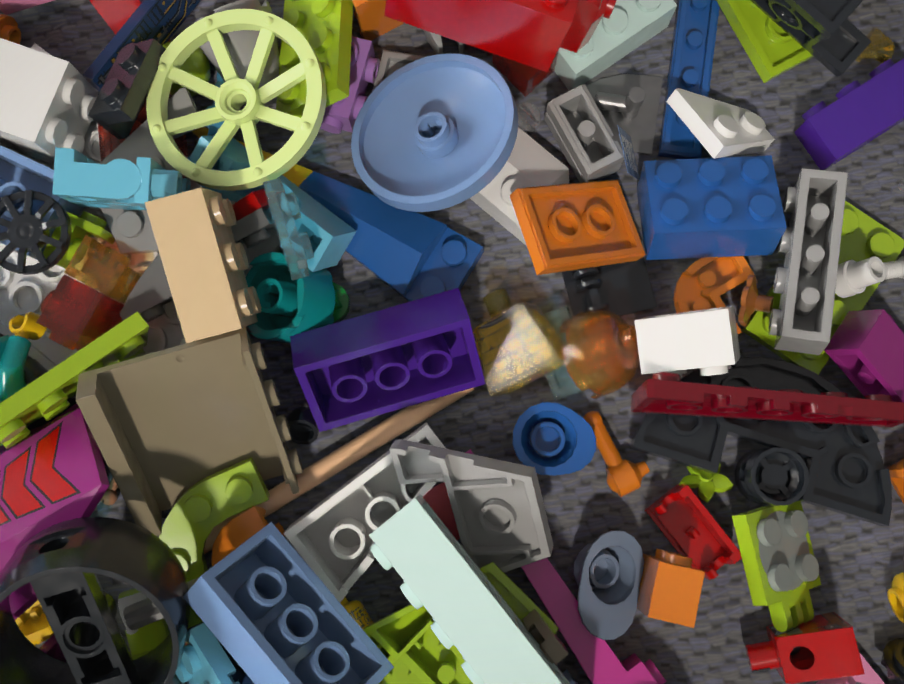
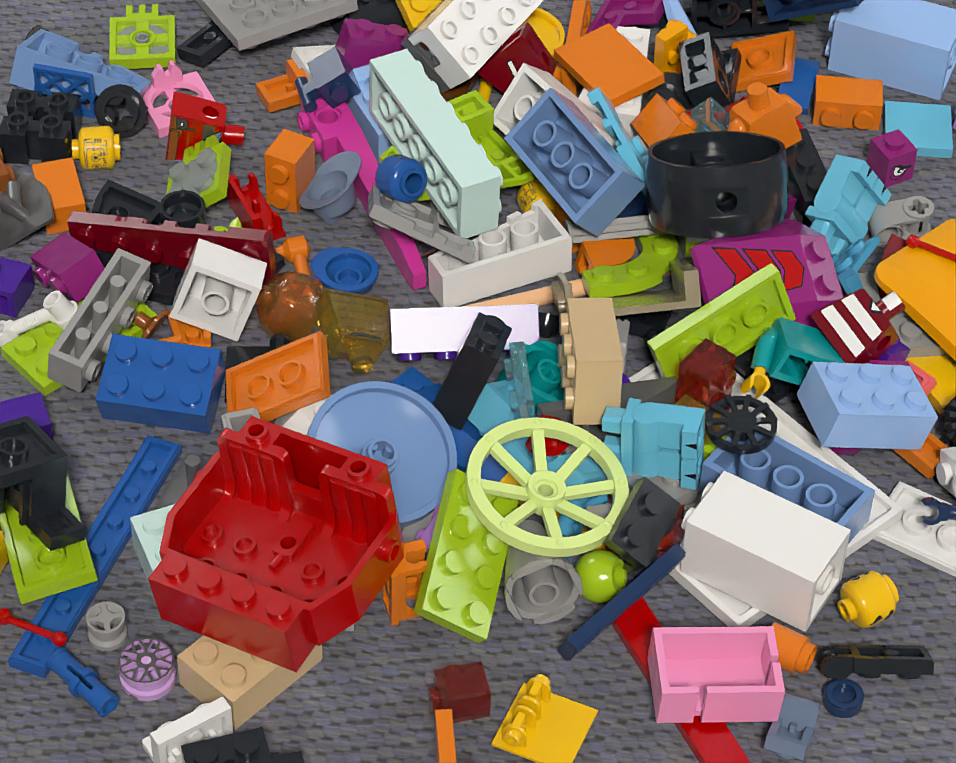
camera: 175 degrees left, 35 degrees down
(356, 266) = (471, 369): none -> black brick
(513, 563) = (401, 178): none -> blue head
(546, 638) = (386, 138): dark tan tile -> none
(628, 152) = (215, 425): medium blue sticker -> none
(720, 126) = (124, 436): white wing -> none

